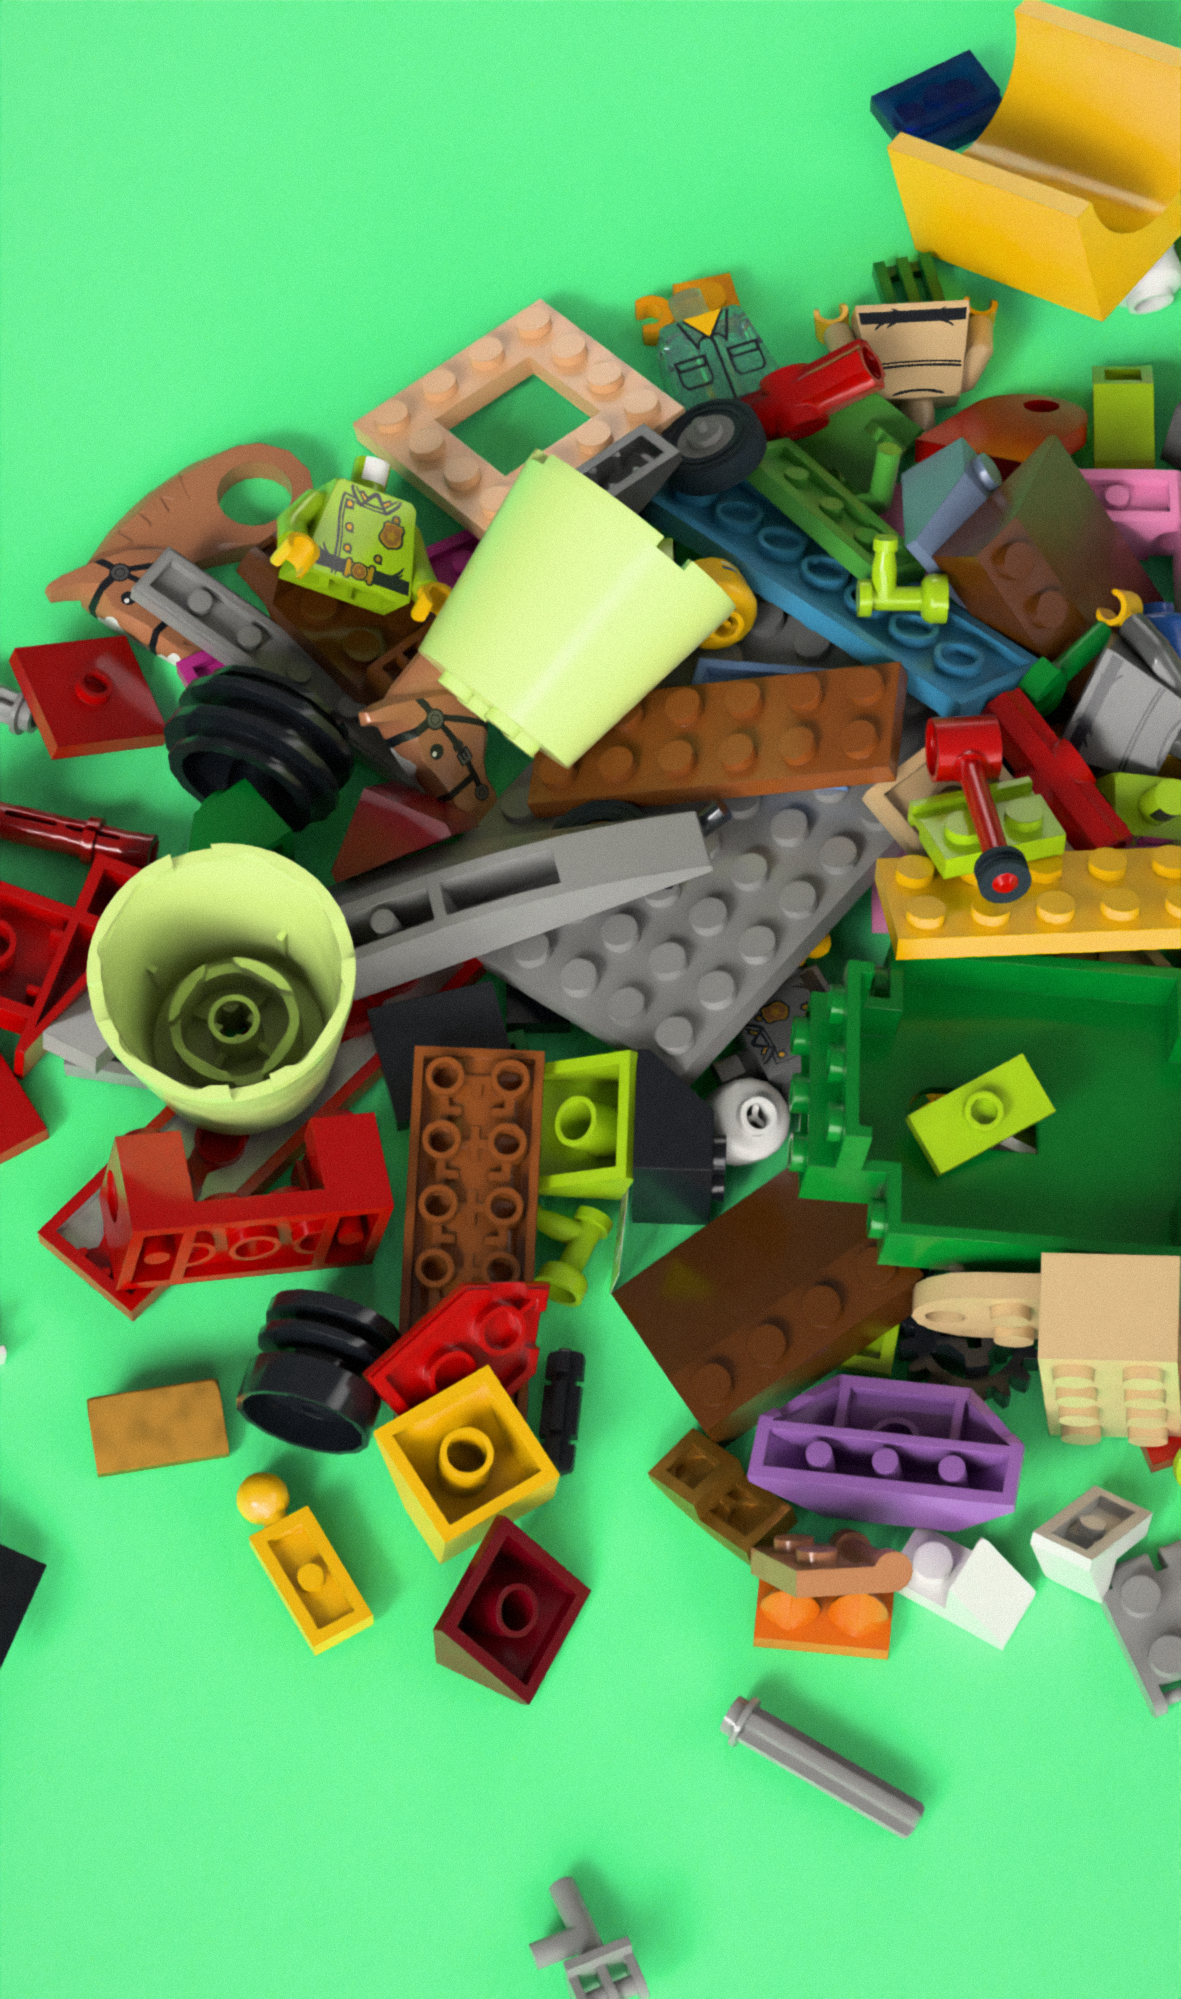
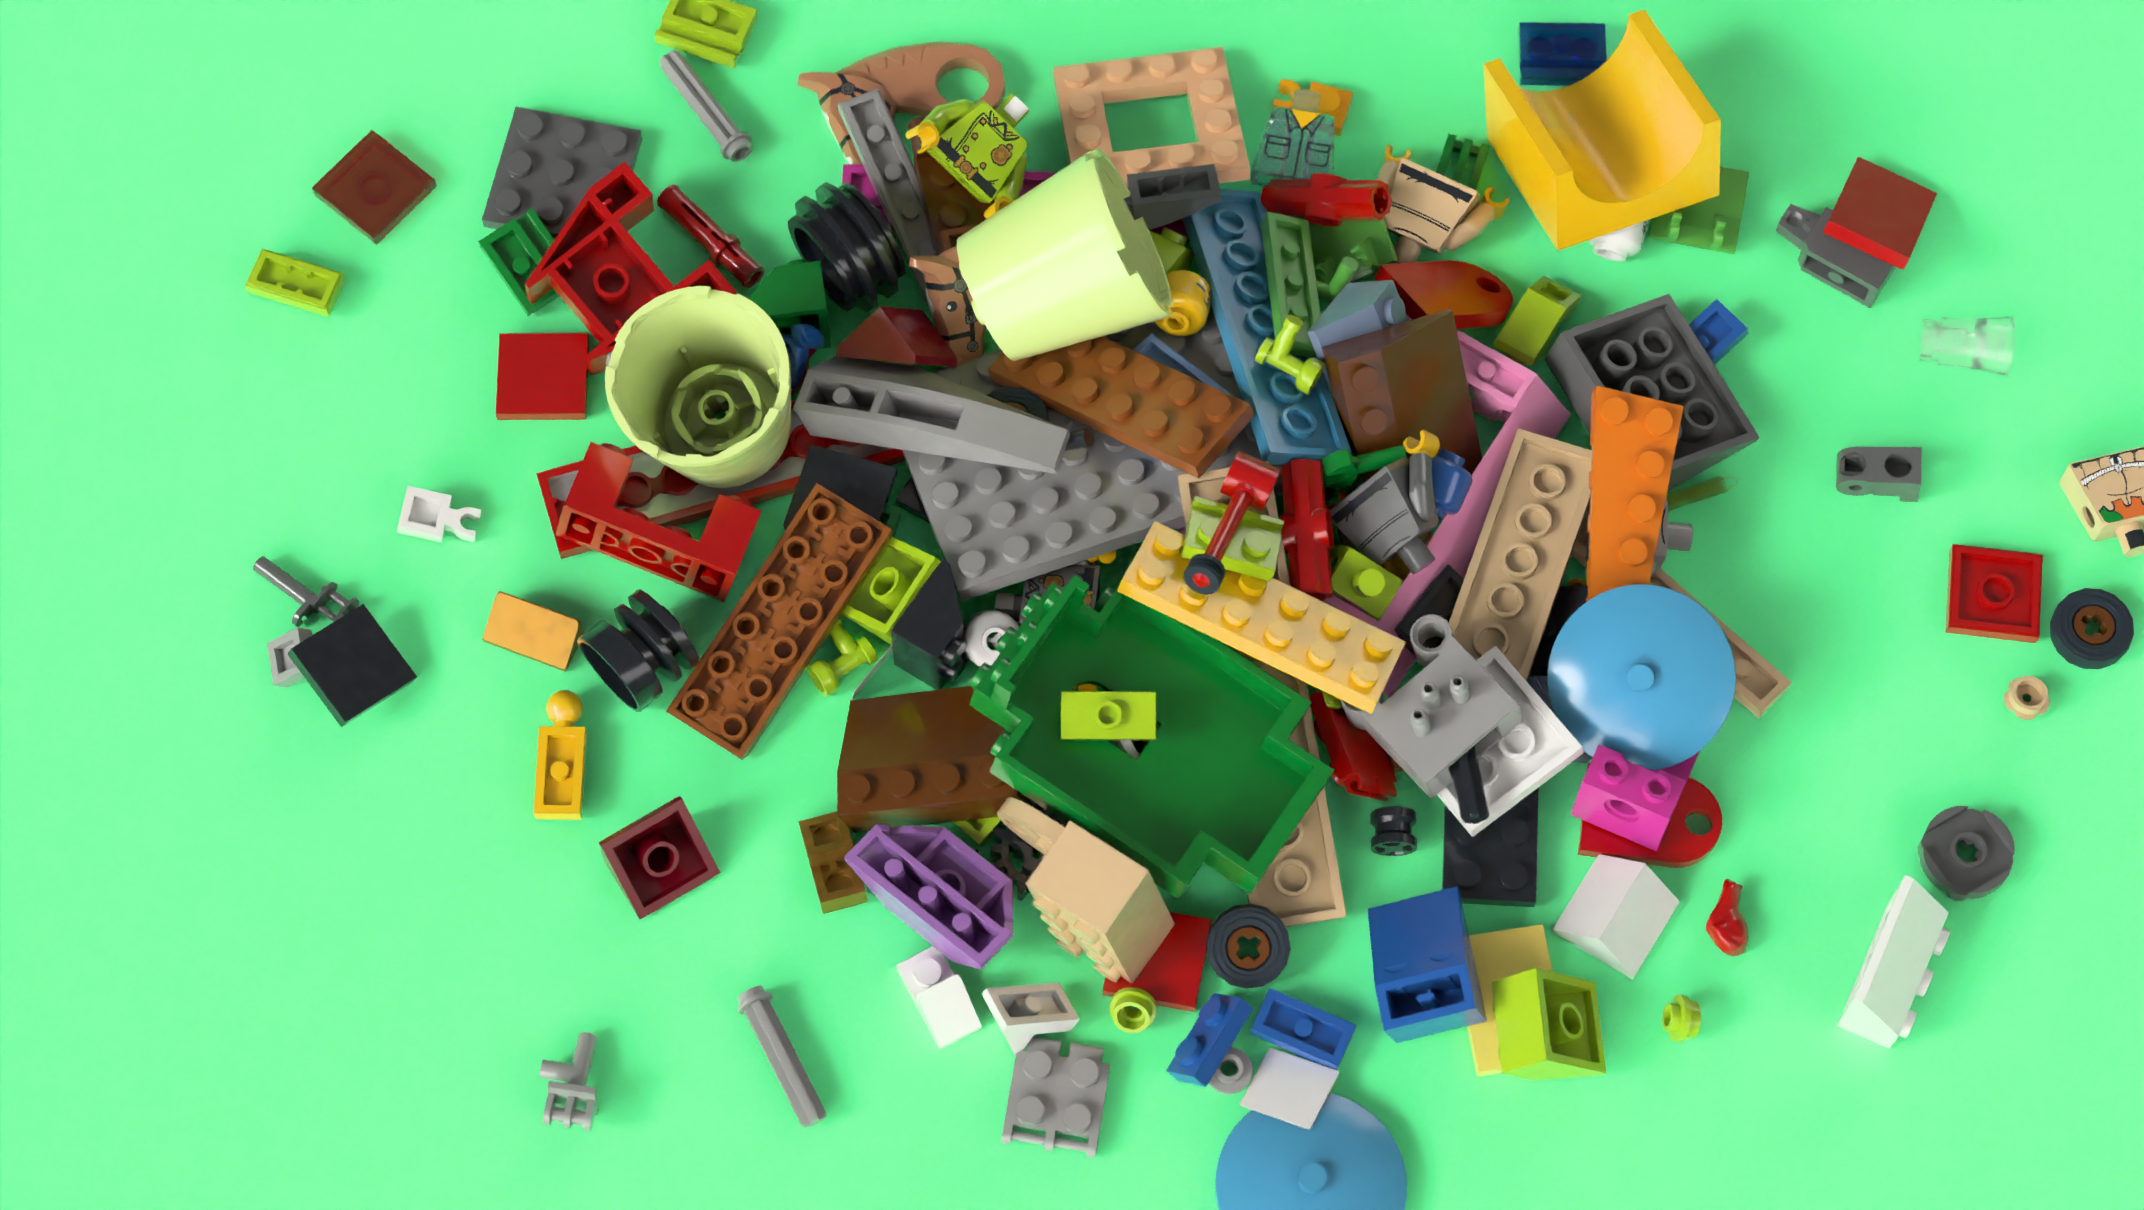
camera: 30 degrees right, 5 degrees up
(88, 697) = (777, 156): red plate -> none
(458, 1337) = (720, 691): red tile -> none
(465, 1462) = (687, 754): yellow slope -> none
(562, 1407) = (771, 755): black axle -> none
(718, 446) = (1251, 202): black wheel -> none
(825, 1624) = (845, 967): orange tile -> none
(830, 1569) = (844, 933): nougat plate -> none

